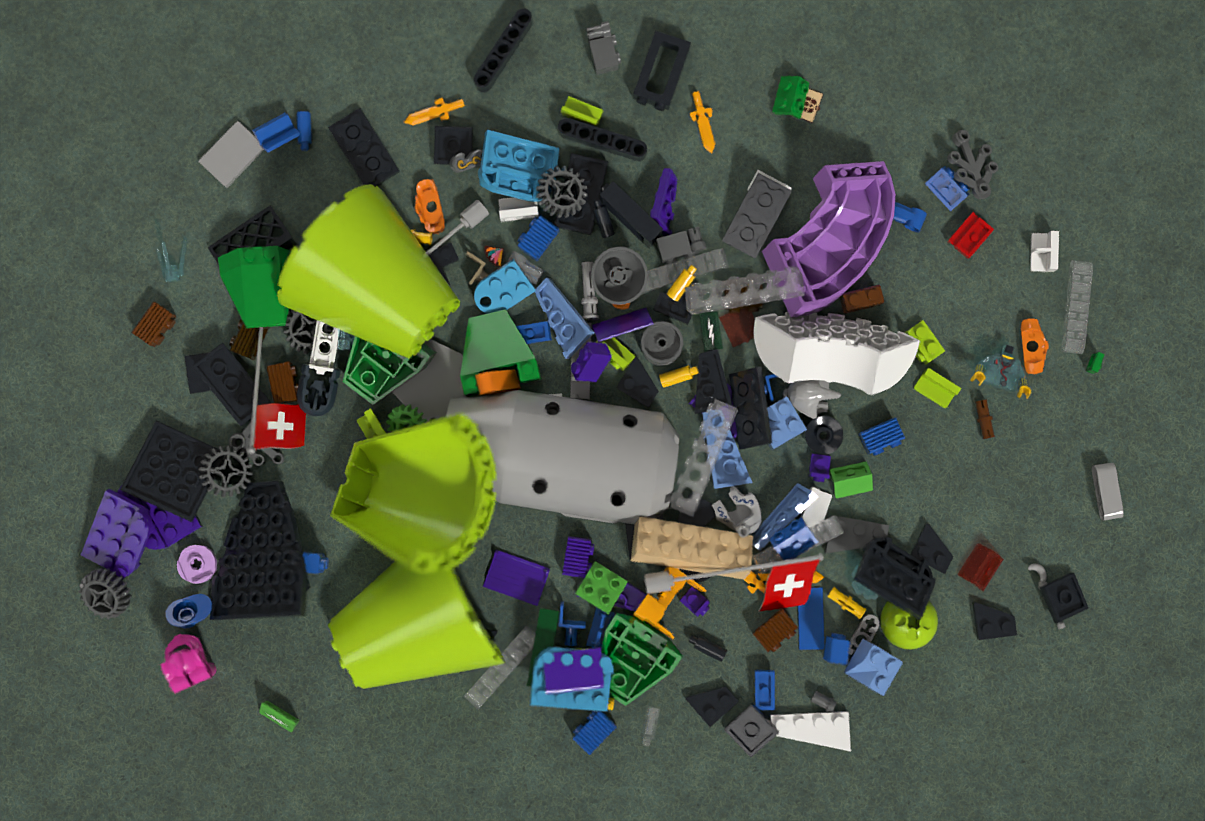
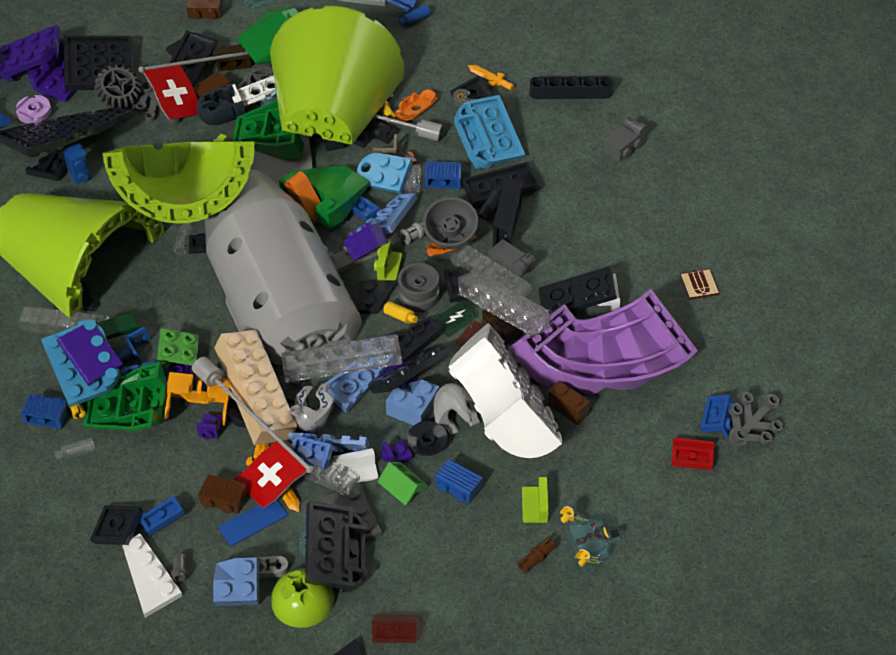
camera: 55 degrees right, 35 degrees down
(363, 149) = (428, 53): black piece -> none
(516, 577) = (150, 299): dark purple piece -> none
(517, 209) = (454, 153): white panel -> none
(555, 186) = (478, 163): dark grey gear -> none
(577, 557) = (196, 322): dark purple brick -> none
(581, 111) = (565, 154): lime panel -> none
(595, 133) = (554, 174): black beam -> none
(622, 324) = (399, 245): dark purple piece -> none
(663, 101) = (644, 191): black piece -> none
(664, 197) = (537, 231): dark purple wing -> none
(681, 282) = (485, 268): yellow cylinder -> none
(703, 122) = (621, 233): light orange sword -> none
(708, 647) = (174, 456): black cylinder -> none
(712, 704) = (123, 487): black wing -> none
(768, 391) = (443, 374): blue bracket -> none
(791, 96) = (697, 271): green bracket -> none
(836, 649) = (235, 541): blue brick -> none
(846, 602) = (285, 536): yellow pin -> none
(911, 217) = (668, 401): blue piece -> none
(929, 346) = (568, 470): lime bracket -> none
(932, 549) = (382, 580): black wing -> none
(1032, 332) = (622, 564): orange piece -> none
(1044, 251) = (727, 518): white panel -> none
(1077, 307) = (698, 569): clear beam -> none
(1095, 363) = (660, 612): green tile -> none

